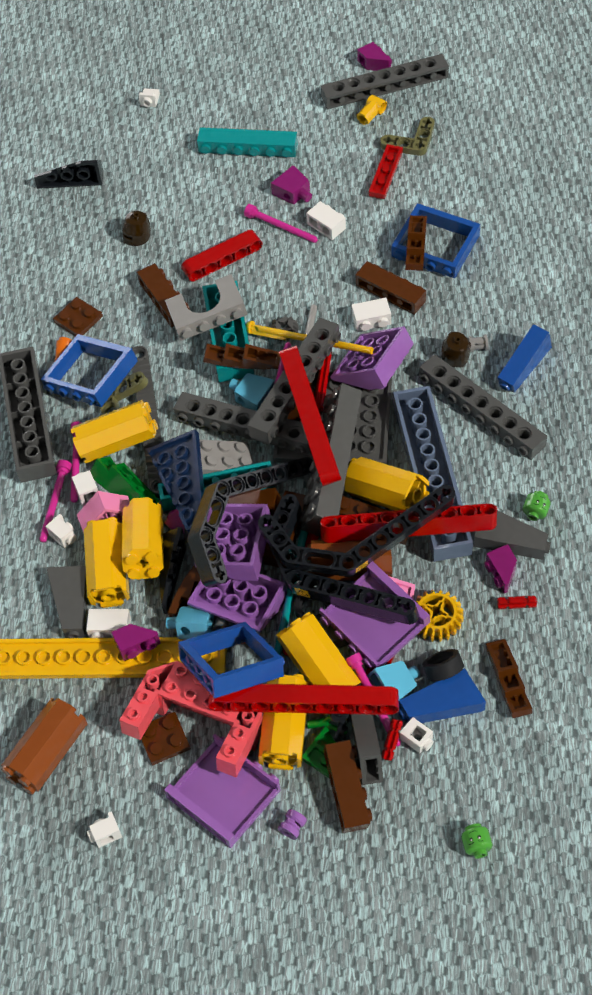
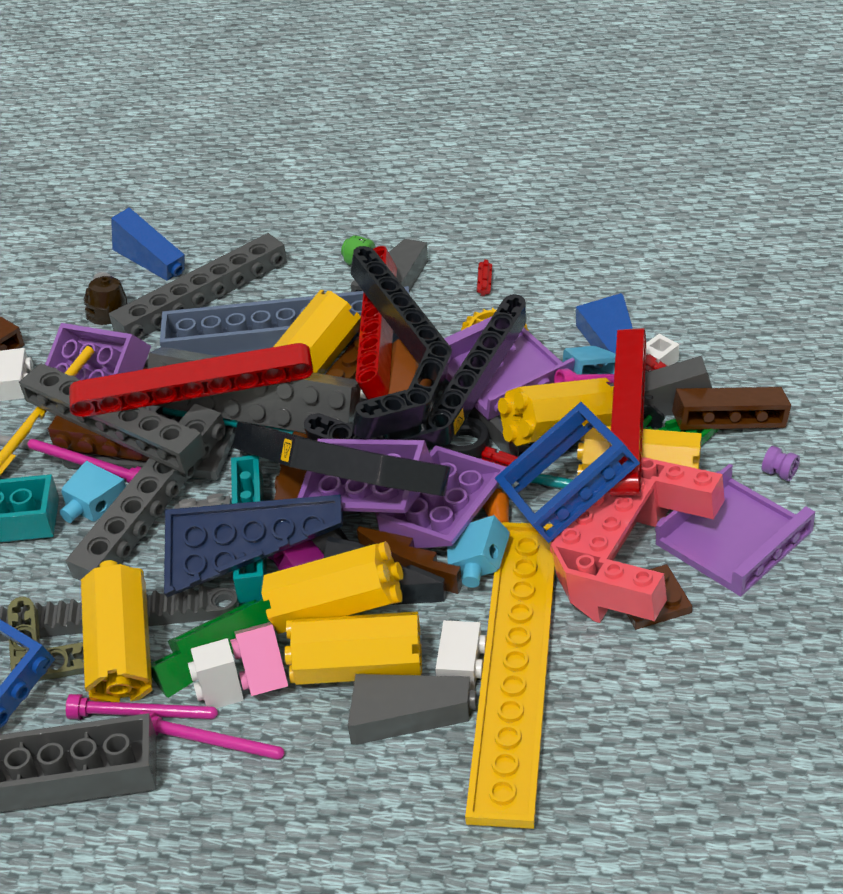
camera: 85 degrees left, 15 degrees down
(43, 745) = (672, 719): dark orange brick -> none
(61, 531) = (276, 719): white brick -> none
(104, 831) = (801, 652): white brick -> none
(134, 640) = (501, 612): magenta slope -> none
(245, 358) = (41, 478): reddish brown slope -> none
(443, 665) = (581, 328): black tyre -> none
(476, 840) = (793, 313): bright green head -> none
(502, 565) = (438, 281): magenta slope -> none
(509, 678) = (592, 286): reddish brown slope -> none

